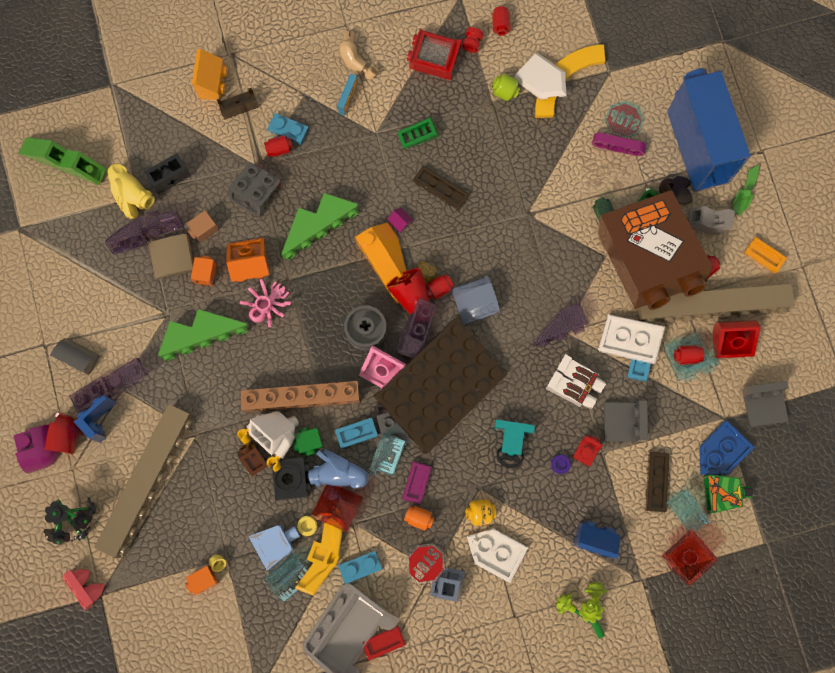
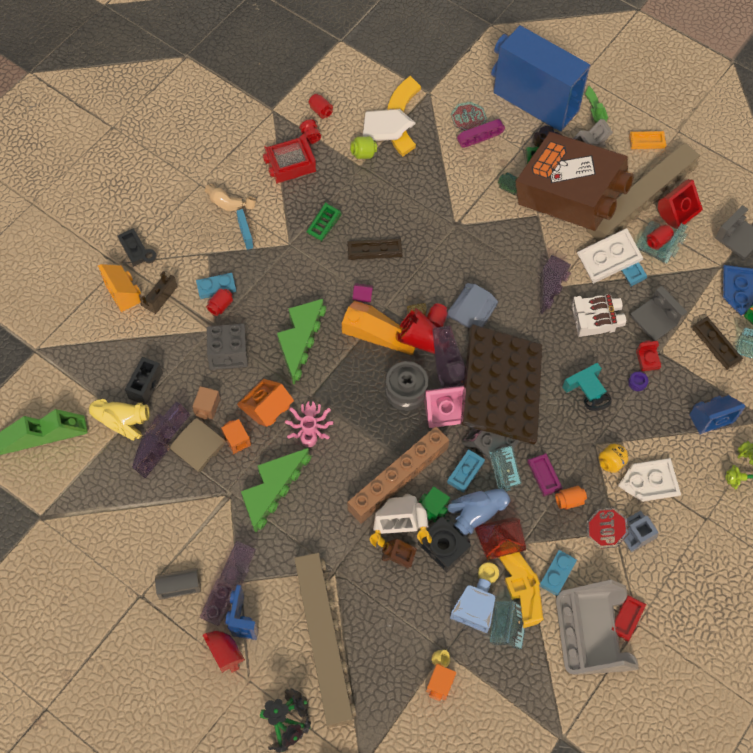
camera: 40 degrees left, 15 degrees down
(31, 450) = (205, 683): magenta brick -> none
(248, 49) = (134, 248): none -> black hinge

